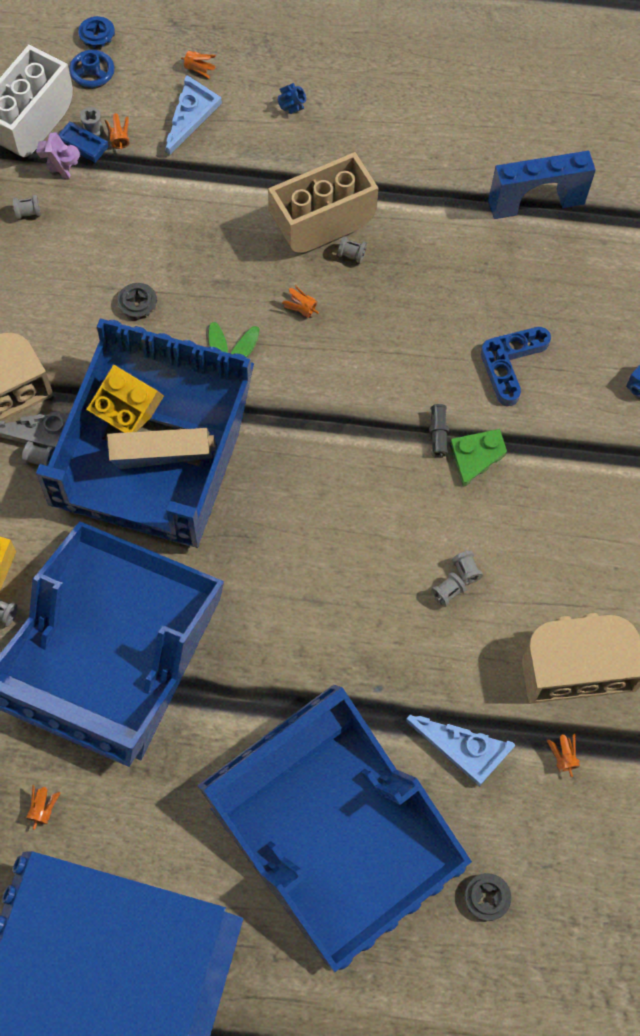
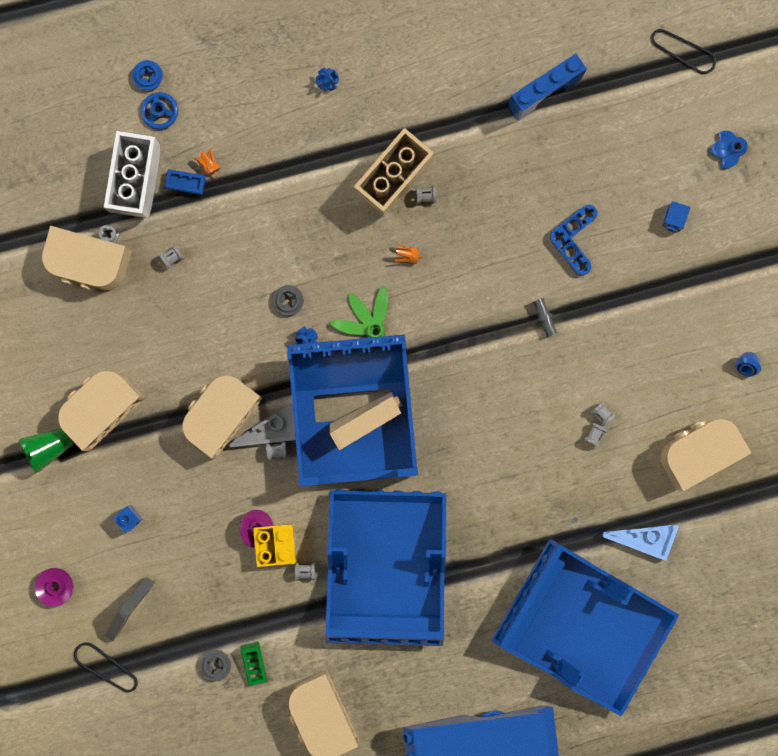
camera: 20 degrees left, 20 degrees up
(37, 811) = (394, 688): orange piece -> none
(59, 155) = (177, 205): lavender hips -> none
(91, 119) = (182, 158): light grey bush -> none
(124, 401) = (326, 397): yellow slope -> none
(194, 61) = (236, 70): orange piece -> none
(194, 107) = (255, 117): light blue wing -> none
(476, 453) = (577, 323): bright green wing -> none
(488, 882) = (704, 627): dark grey gear -> none
(569, 760) = (714, 521): orange piece -> none

